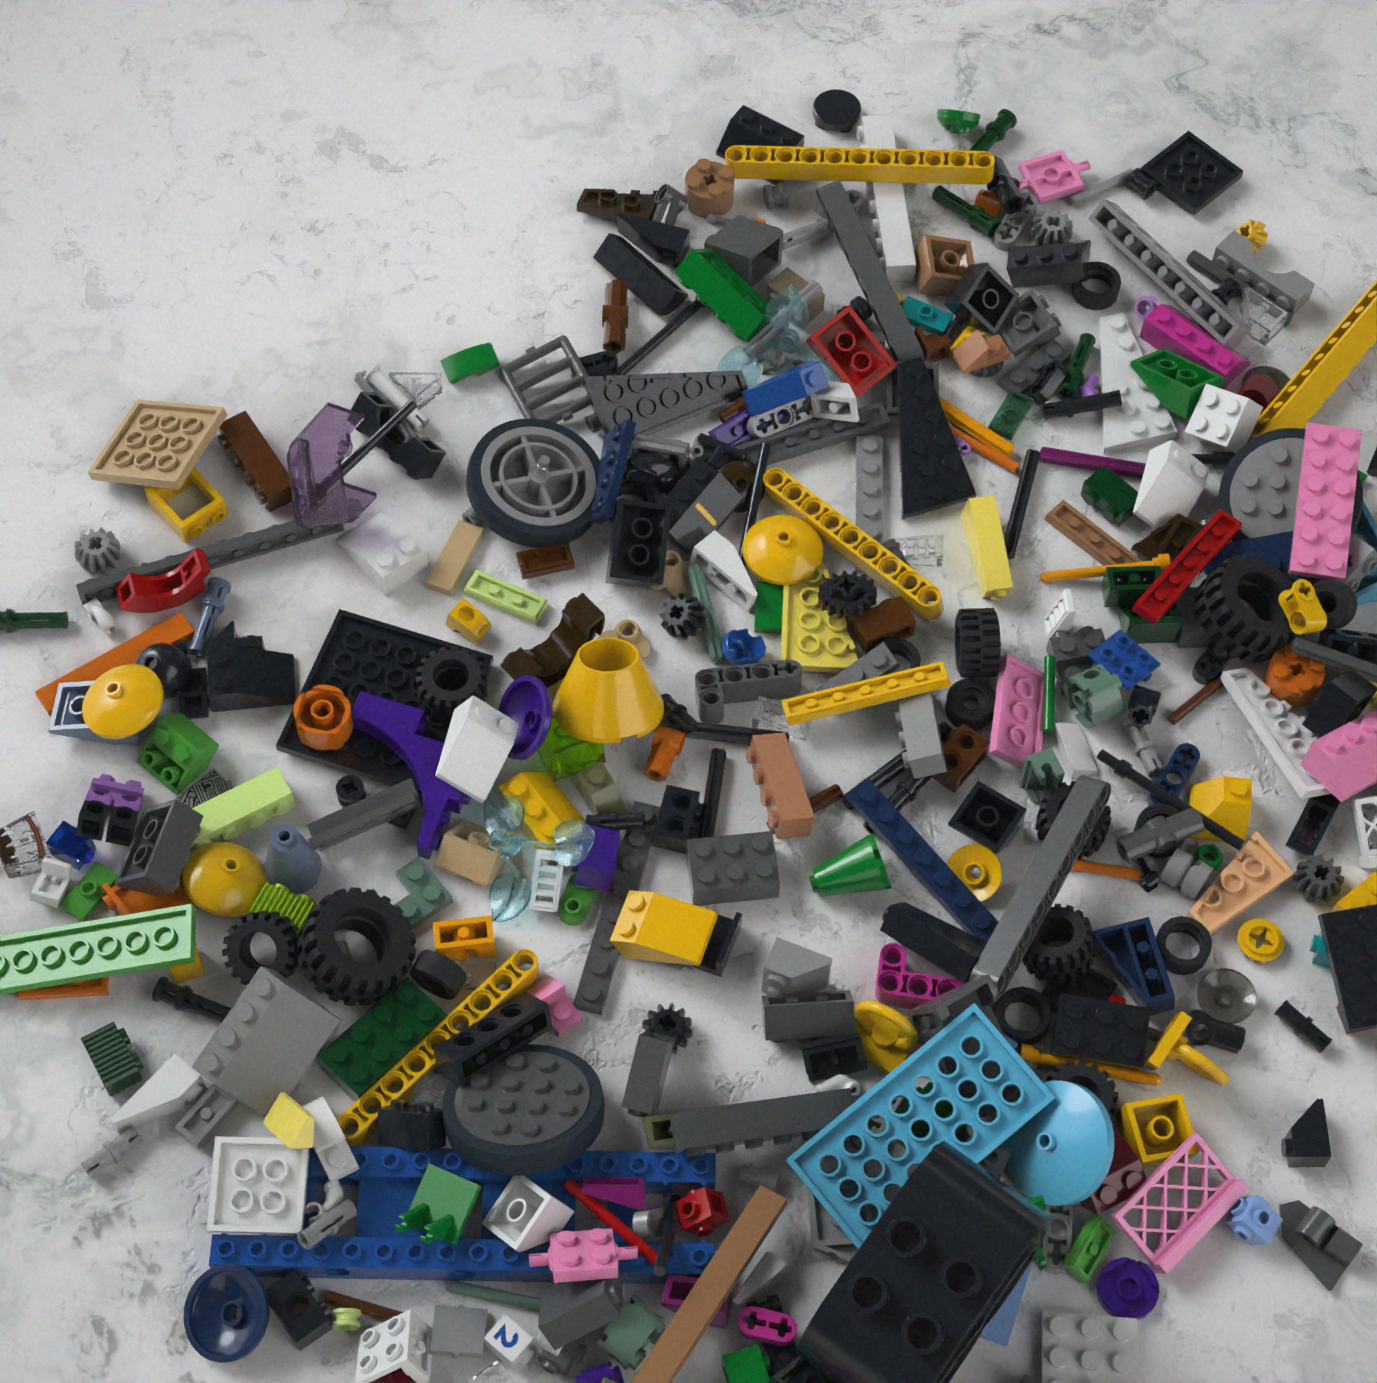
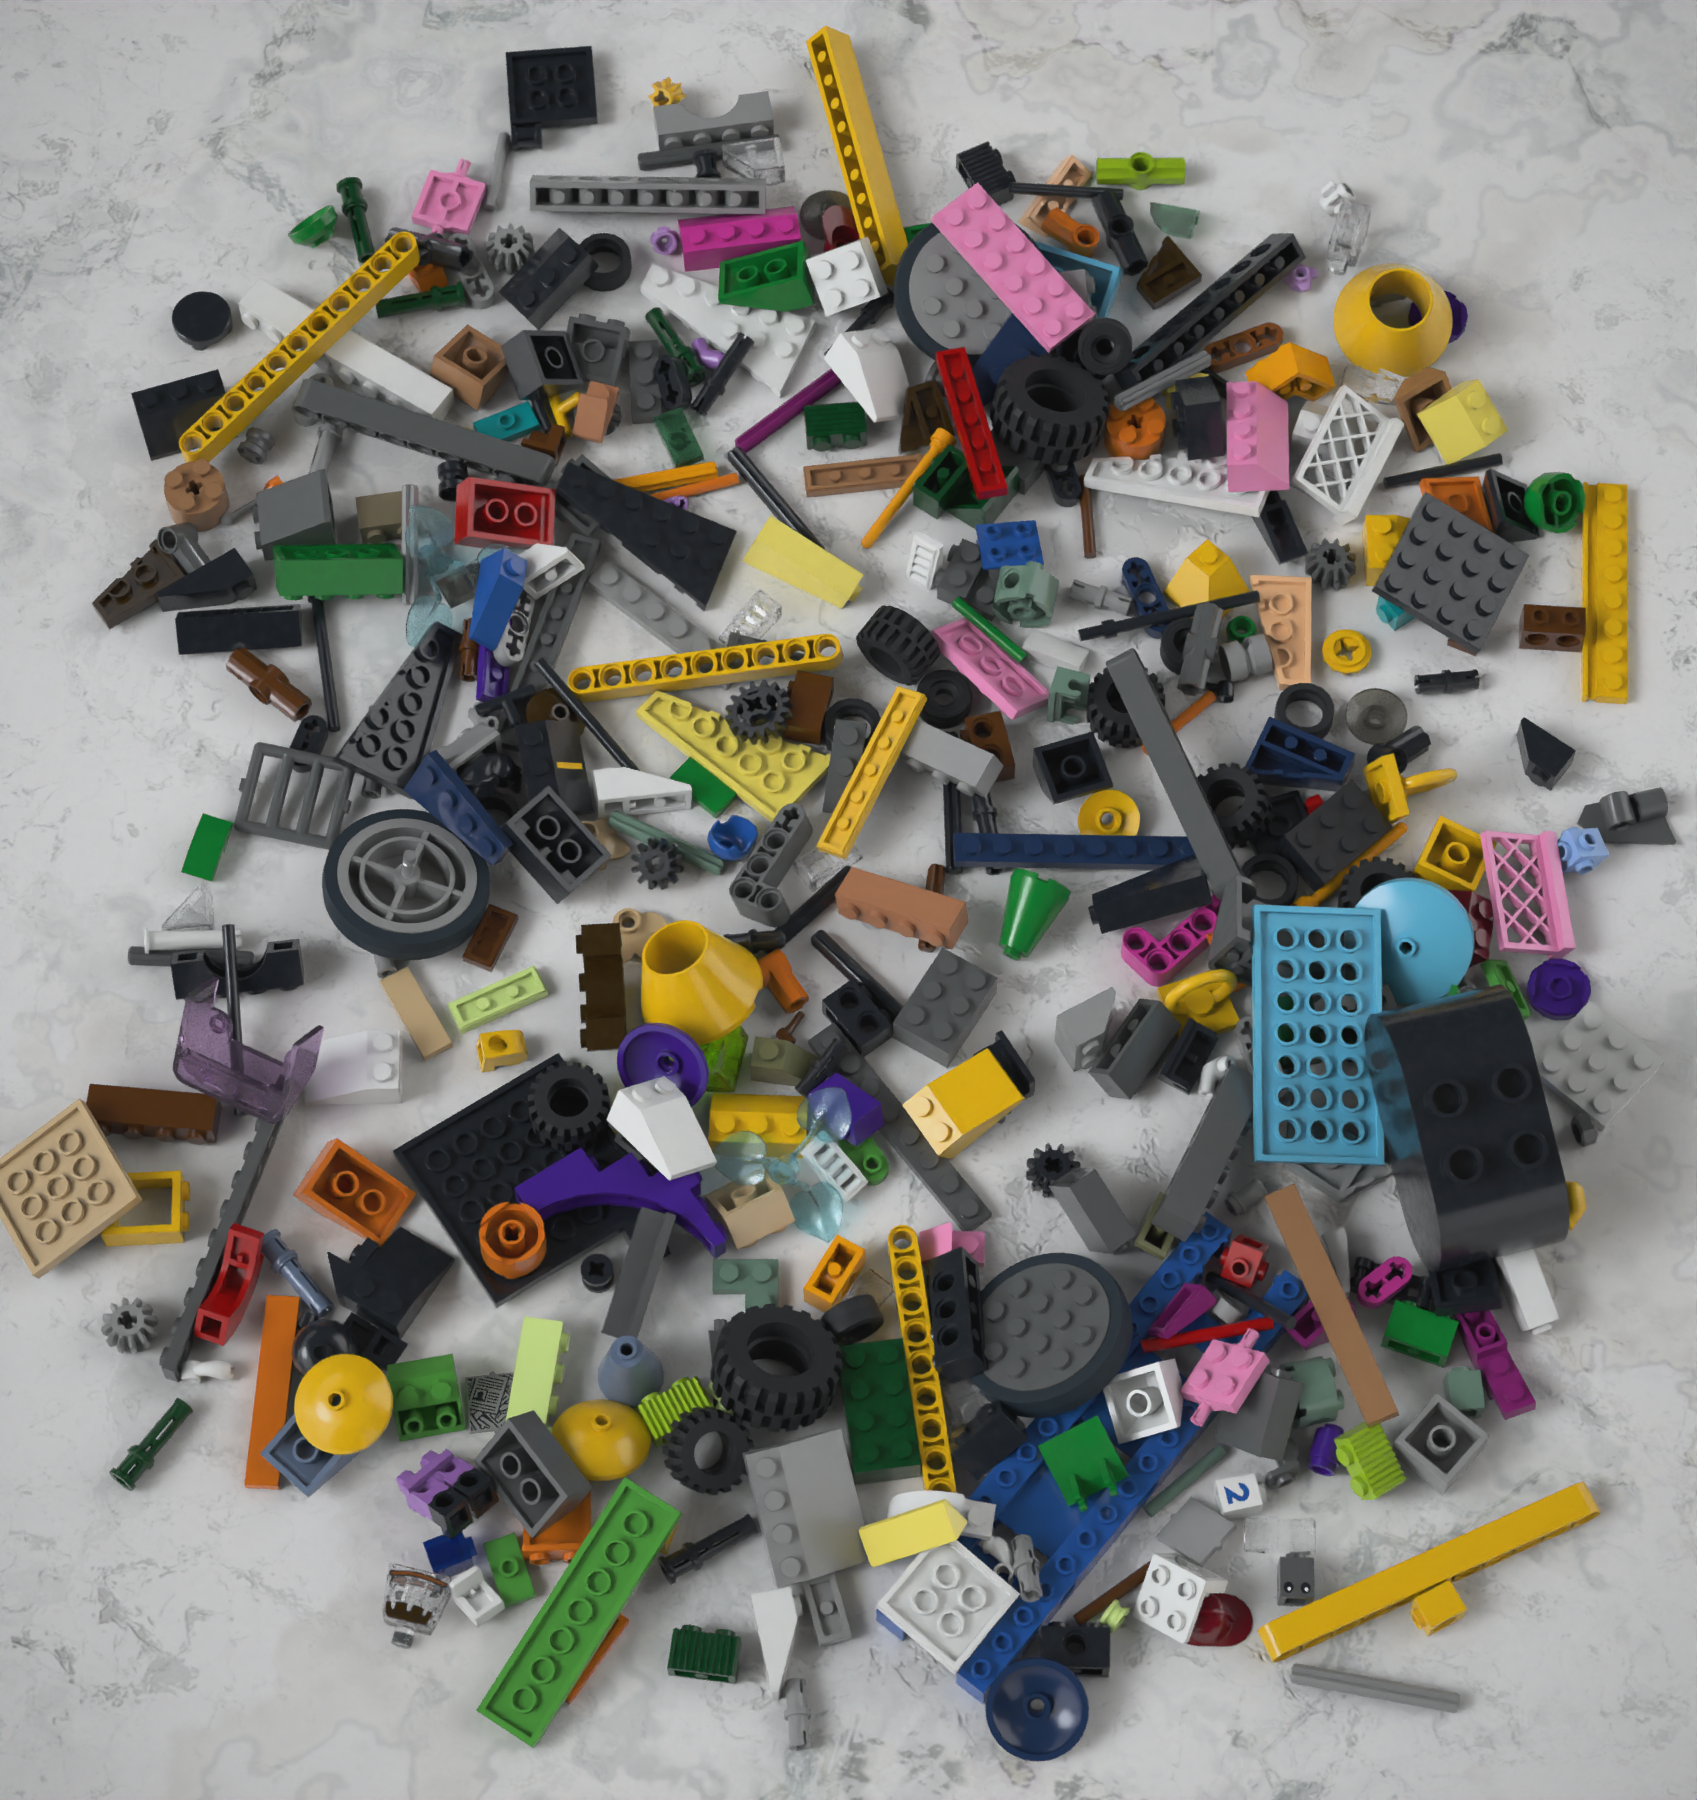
camera: 50 degrees left, 5 degrees up
(292, 609) = (354, 1192): none -> orange slope
(624, 784) = (785, 1033): none -> reddish brown hand
(779, 560) = (659, 746): yellow dish -> none
(1142, 705) = (1065, 566): black piece -> none
(1303, 610) = (1096, 369): yellow piece -> none

